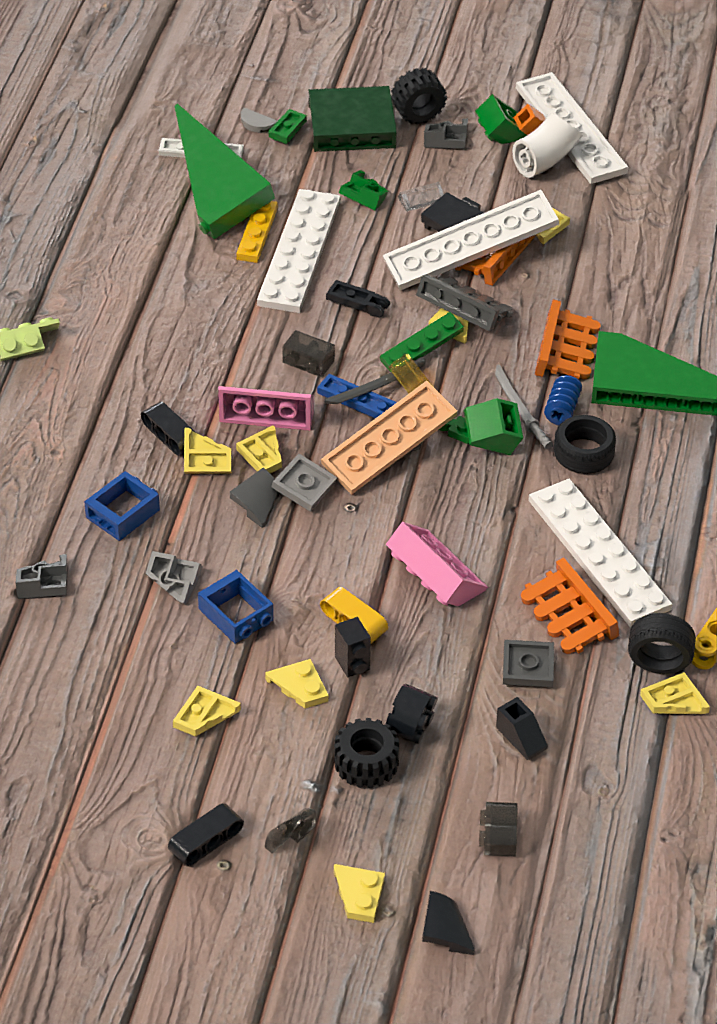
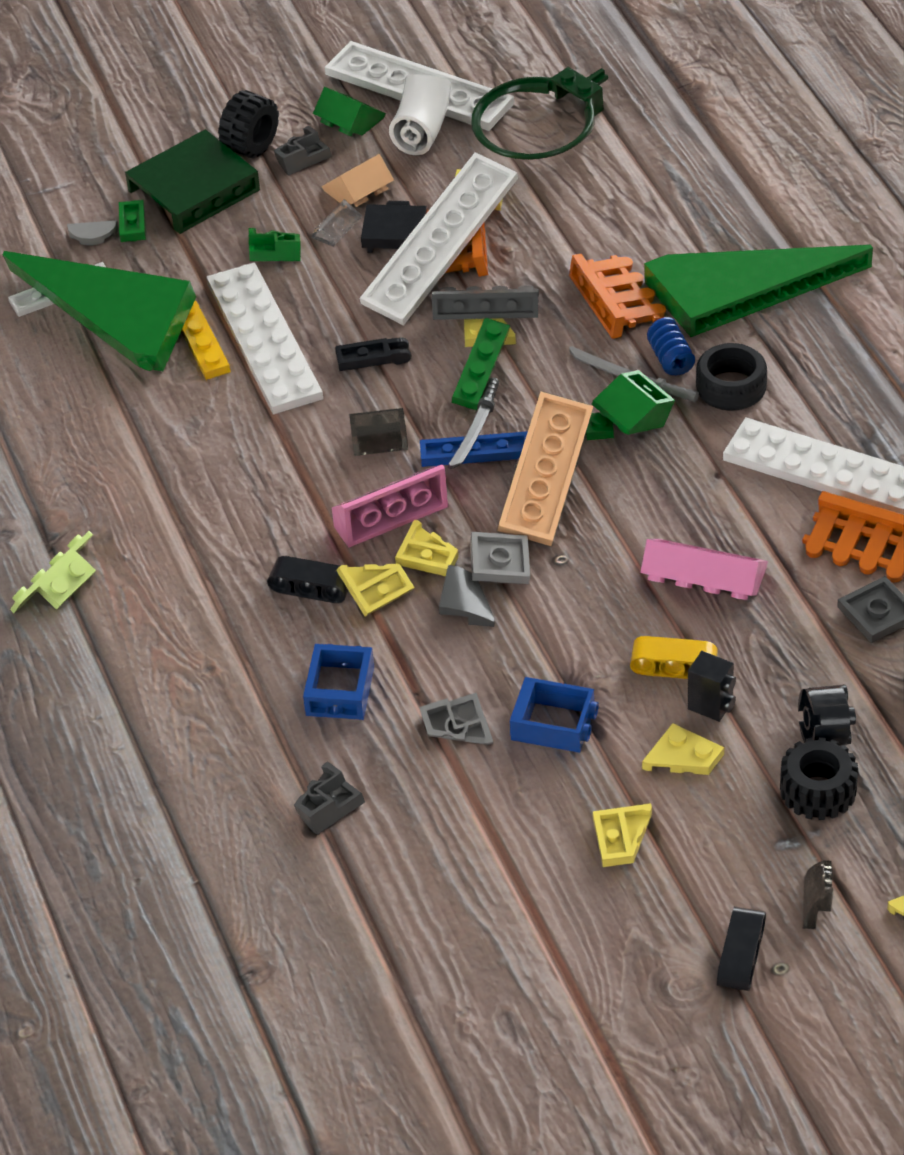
camera: 30 degrees left, 0 degrees up
(408, 373) = (505, 401): clear yellow tile -> none
(462, 174) = (360, 182): none -> light nougat slope
(529, 119) = (380, 97): orange brick -> none
(672, 176) = (561, 84): none -> dark green brick

